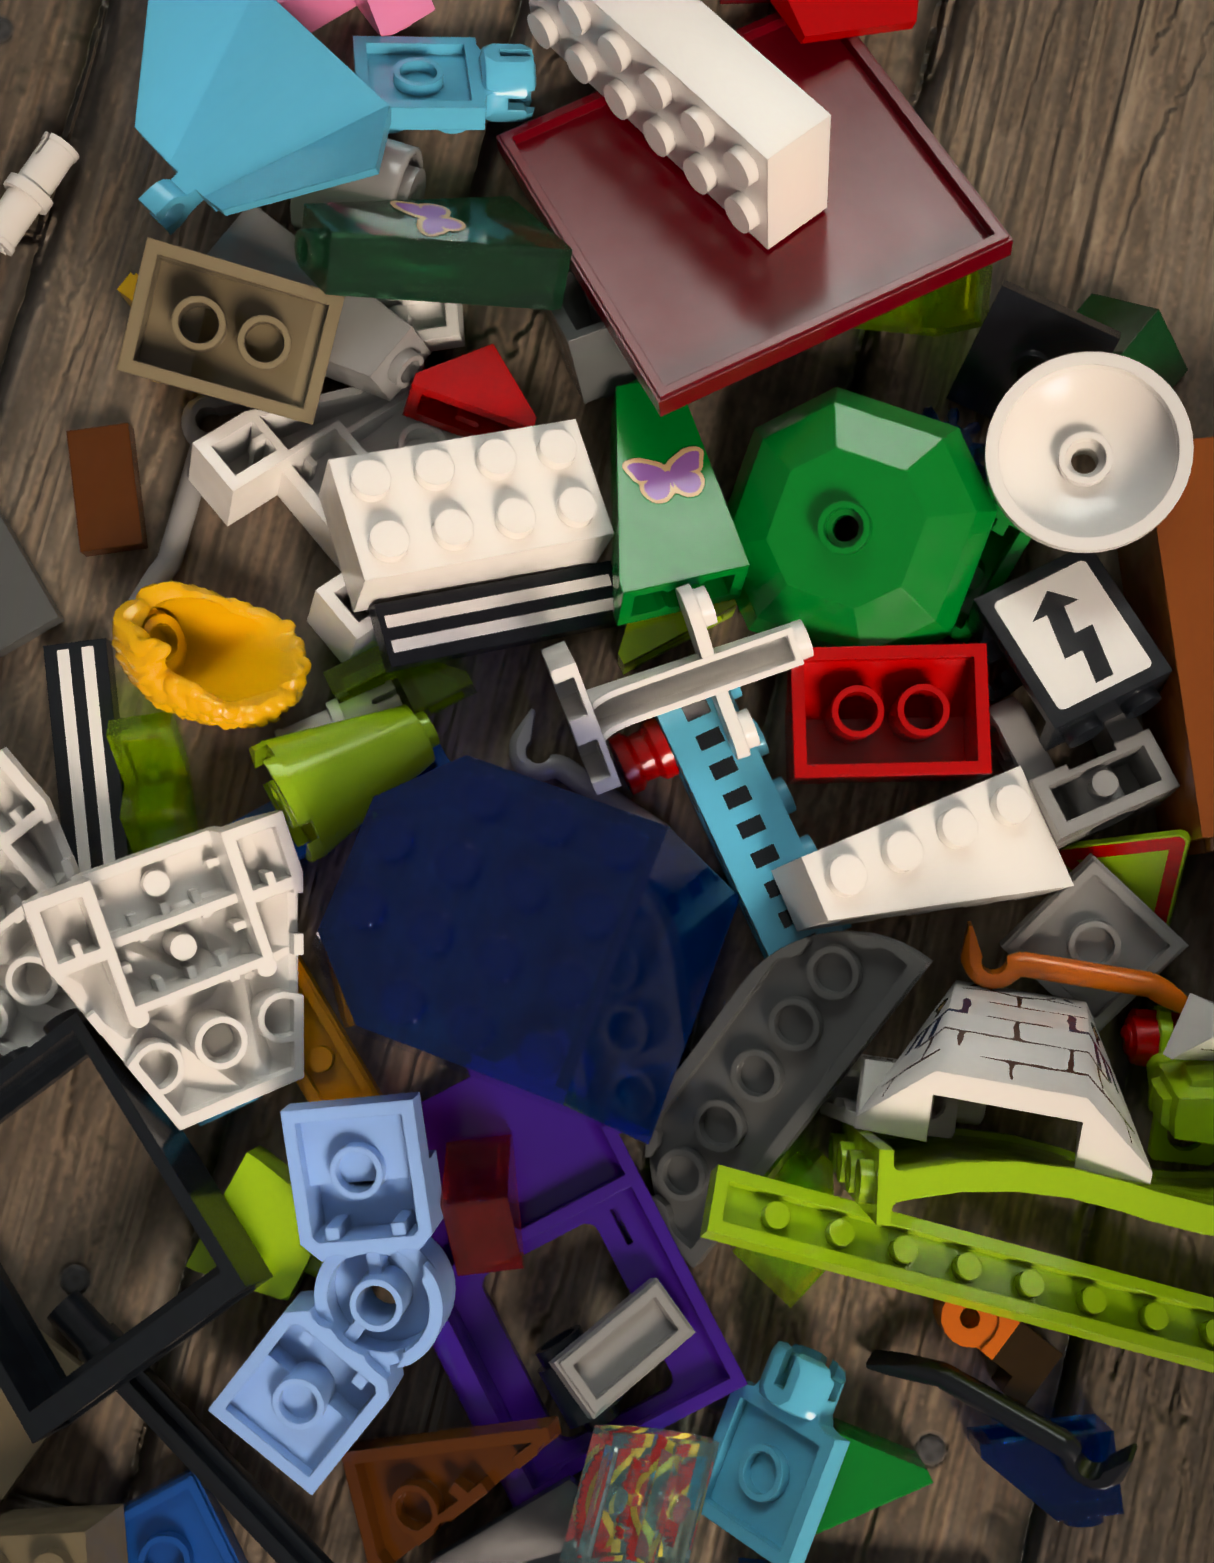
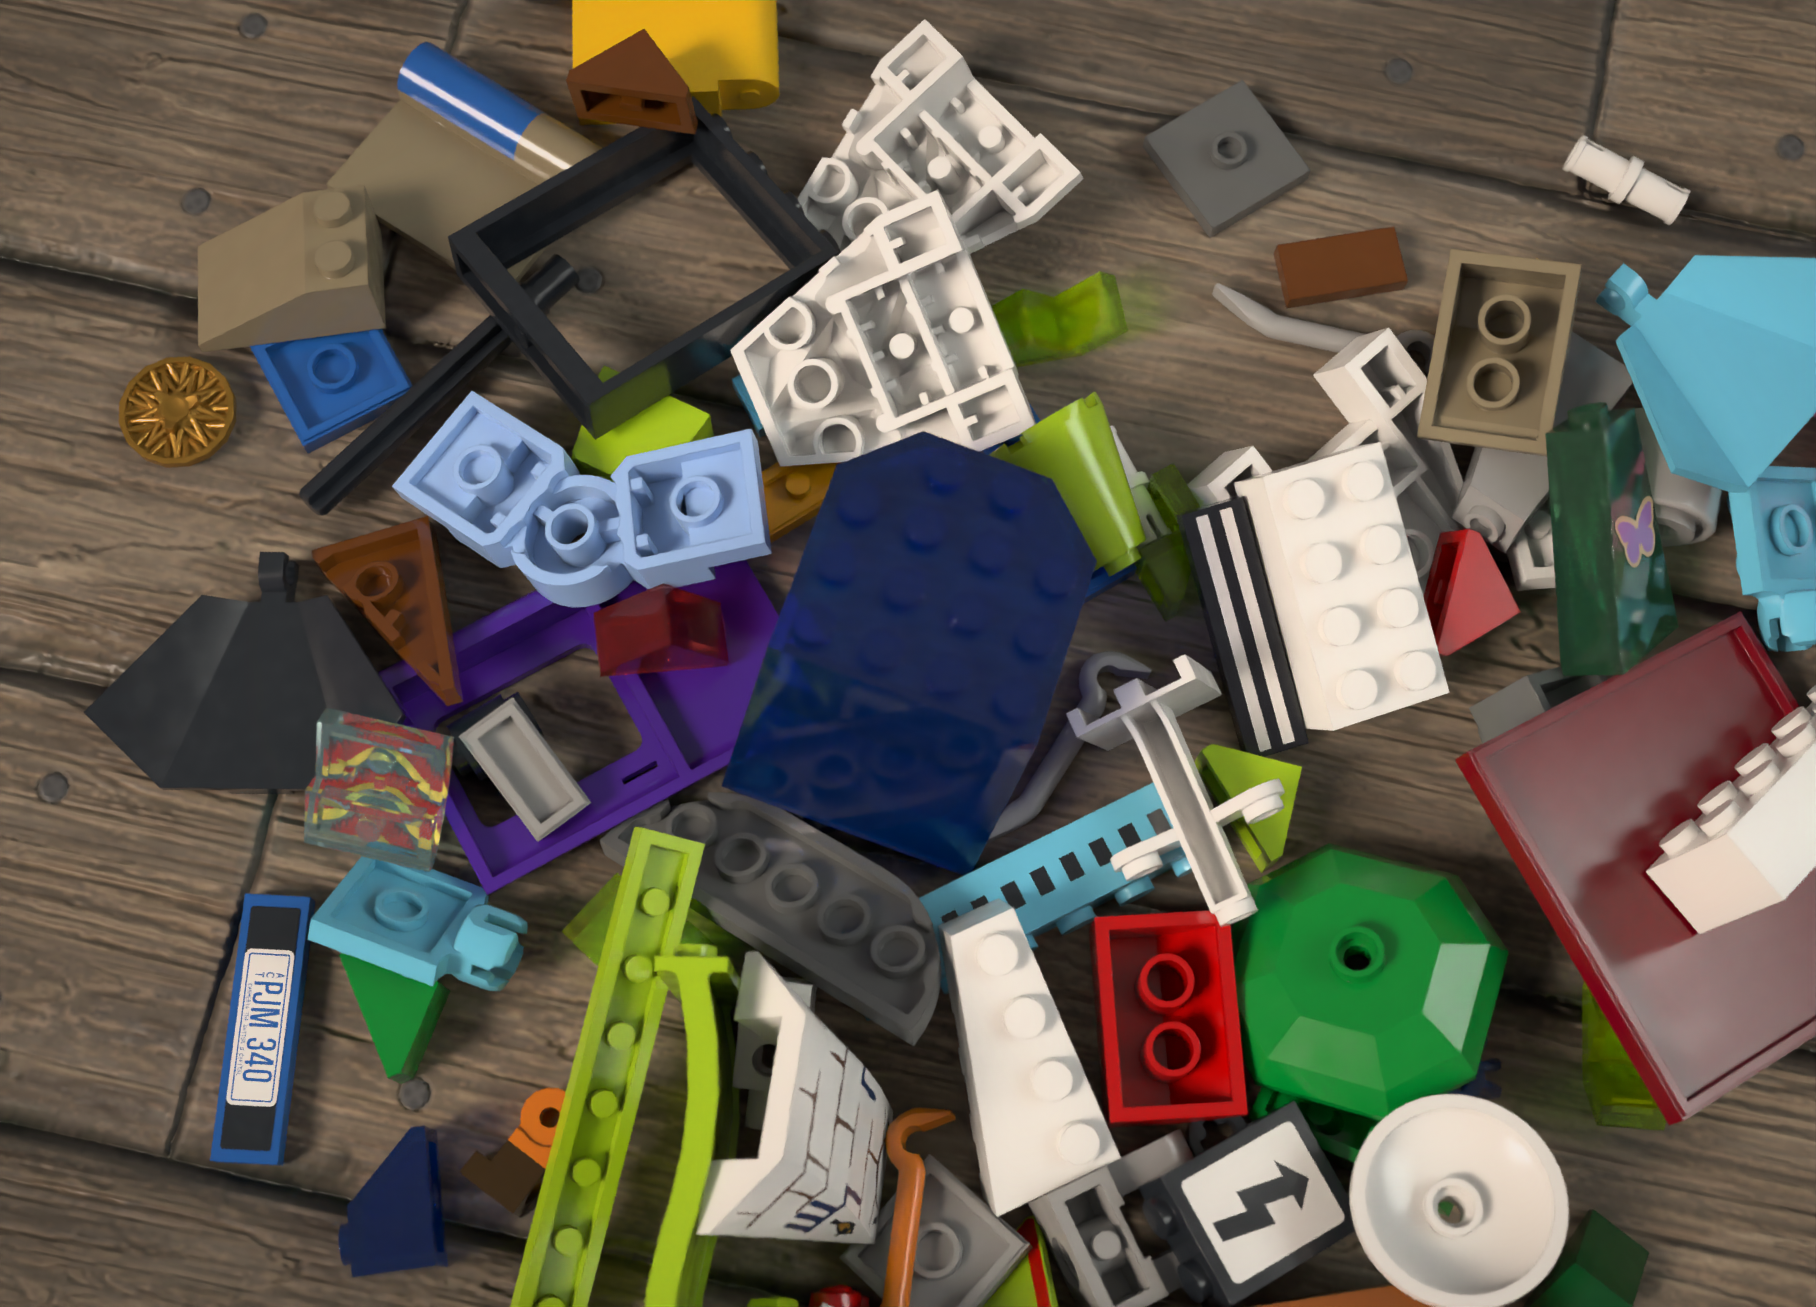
camera: 85 degrees right, 10 degrees down
(87, 776) = (1134, 253): black tile -> none
(209, 655) = (1183, 358): yellow hair -> none
(643, 756) = (1107, 775): red wheel -> none
(666, 512) = (1356, 781): slope -> none
(1008, 1413) = (453, 1157): black piece -> none
(1015, 338) = (1595, 1162): black plate -> none

